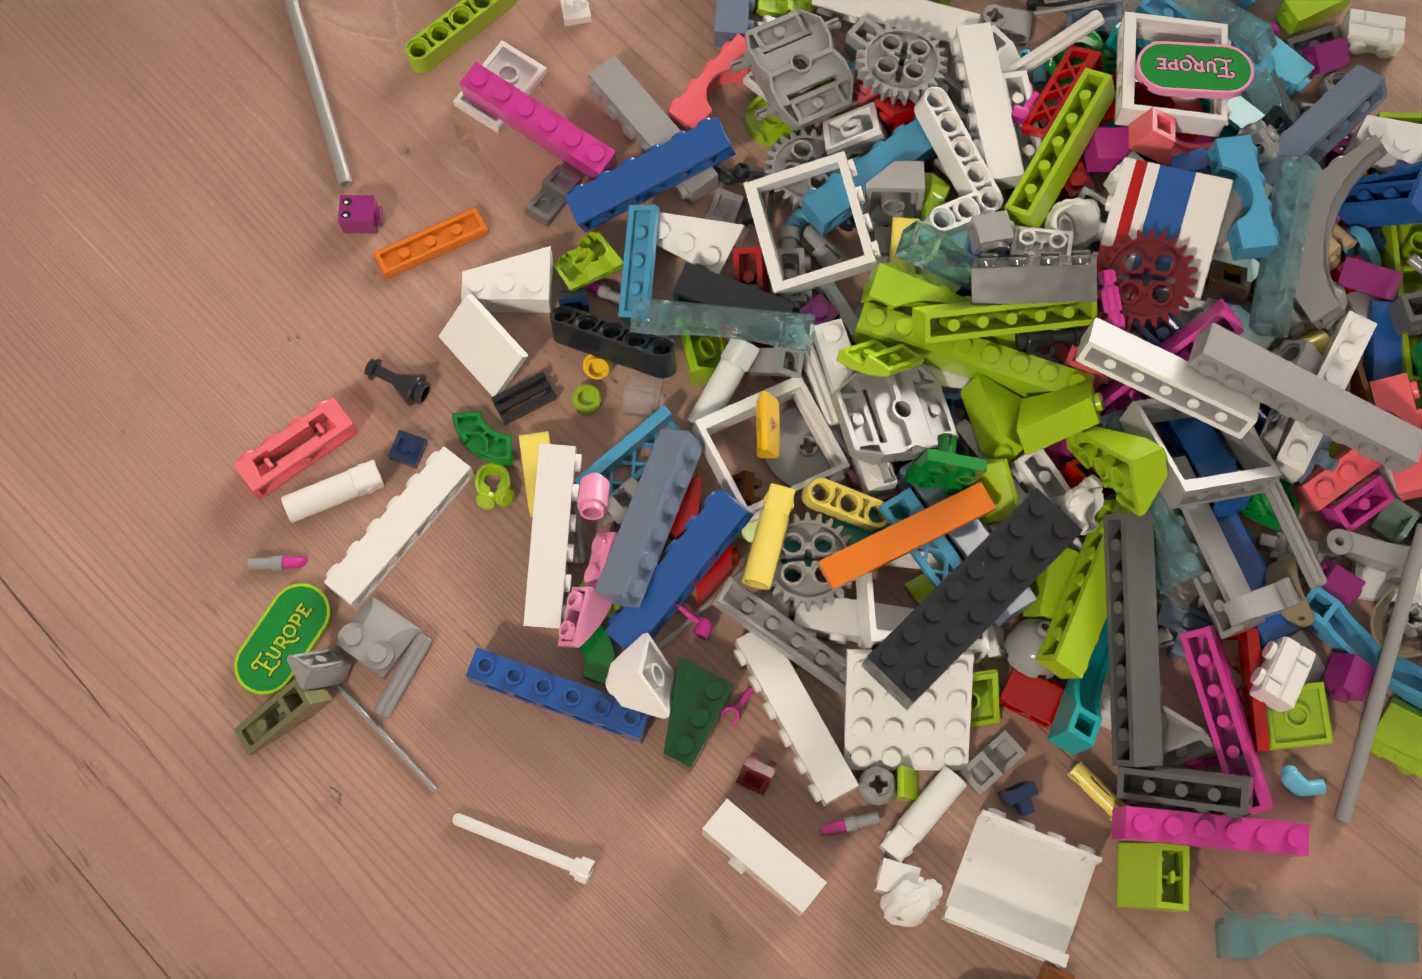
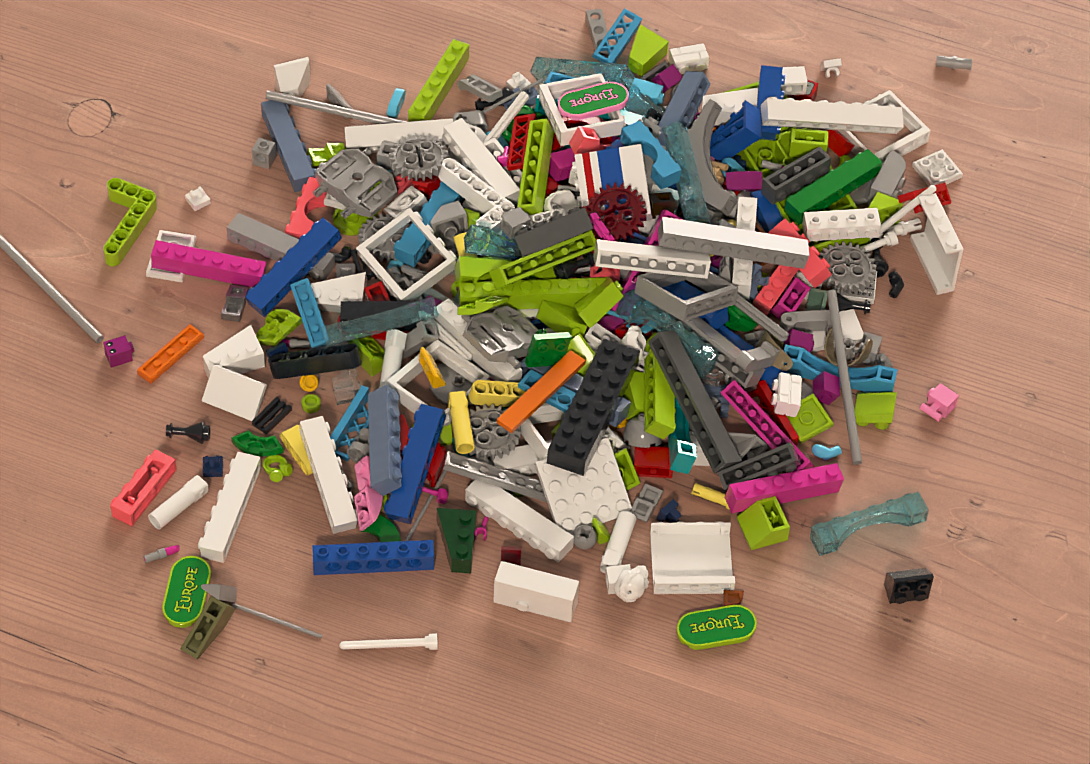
camera: 25 degrees left, 20 degrees down
(377, 637) = (245, 571): light grey slope -> none
(403, 675) = (271, 583): light grey axle -> none
(593, 496) = (344, 442): bright pink brick -> none
(642, 678) = (419, 525): white slope -> none
(851, 823) = (578, 563): light grey piece -> none
(1123, 461) = (647, 310): lime wedge -> none

